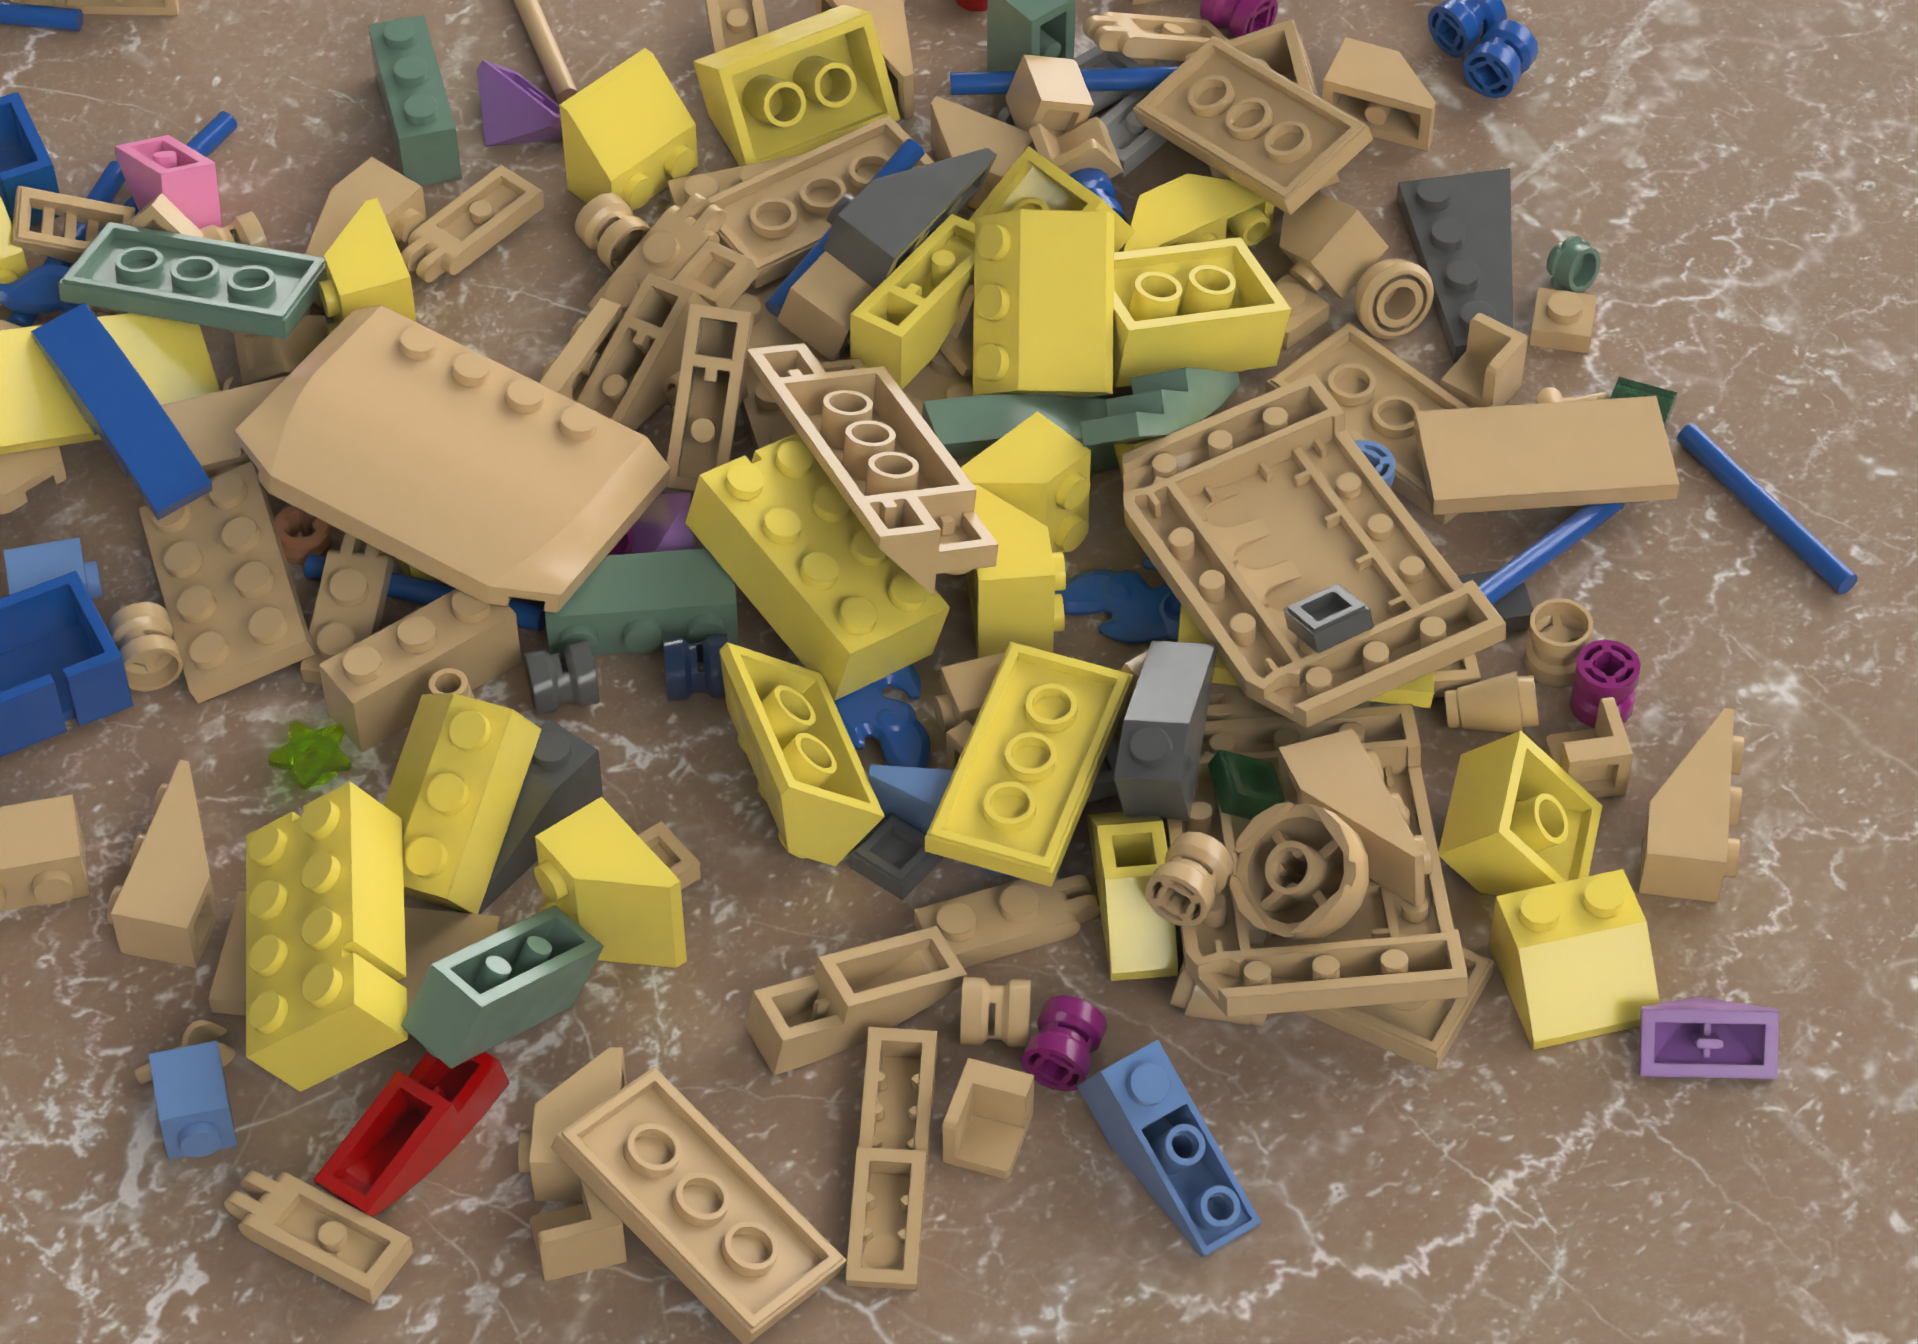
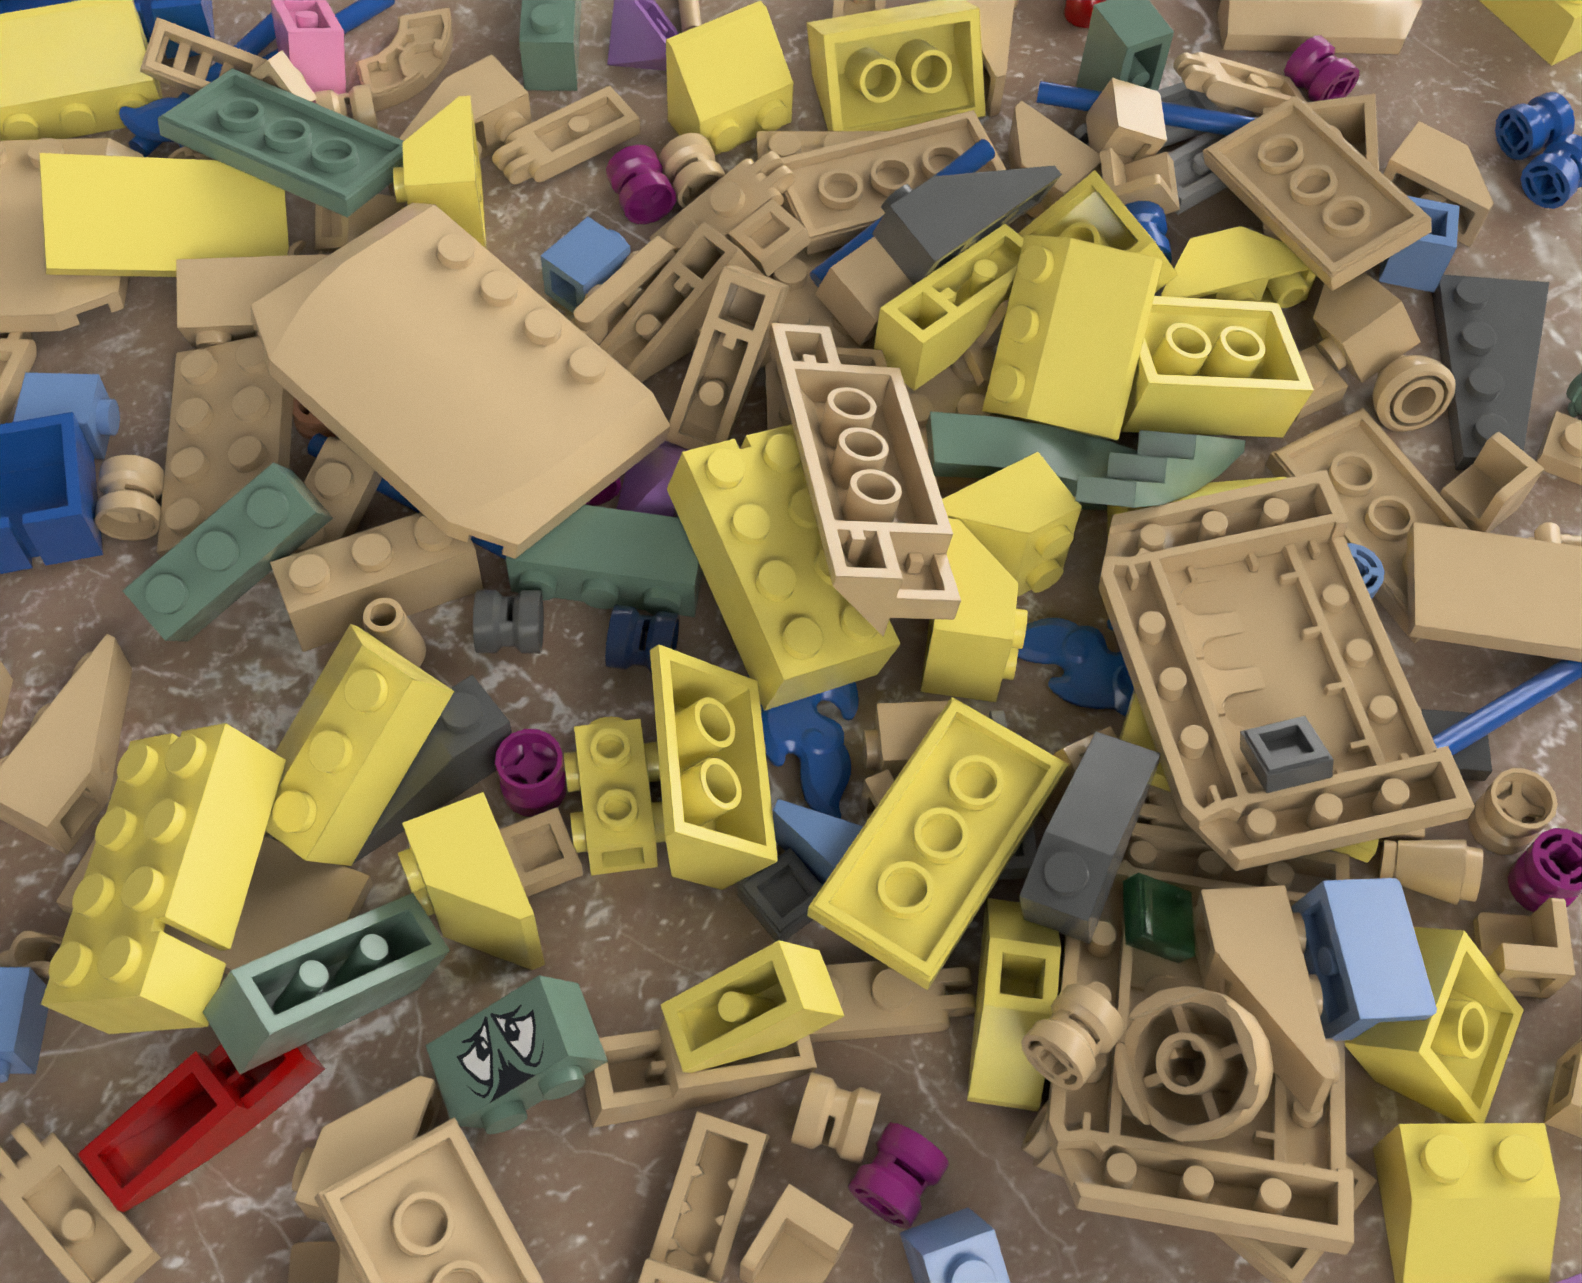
camera: 10 degrees right, 10 degrees up
(122, 410) = (171, 258): blue slope -> none
(276, 664) = (227, 554): none -> sand green brick
(277, 177) = (410, 60): none -> tan tile
(315, 769) = (249, 663): clear neon green plate -> none
(531, 336) = (582, 260): none -> medium blue brick
(562, 253) = (640, 183): none -> magenta wheel
(630, 789) = (527, 758): none -> magenta wheel
(692, 1012) = (516, 1055): none -> sand green brick
(714, 802) = (614, 776): none -> light yellow brick
(897, 924) = (752, 1007): none -> light yellow slope
(1377, 168) = (1425, 261): none -> medium blue brick
(1434, 767) = (1364, 955): none -> panel

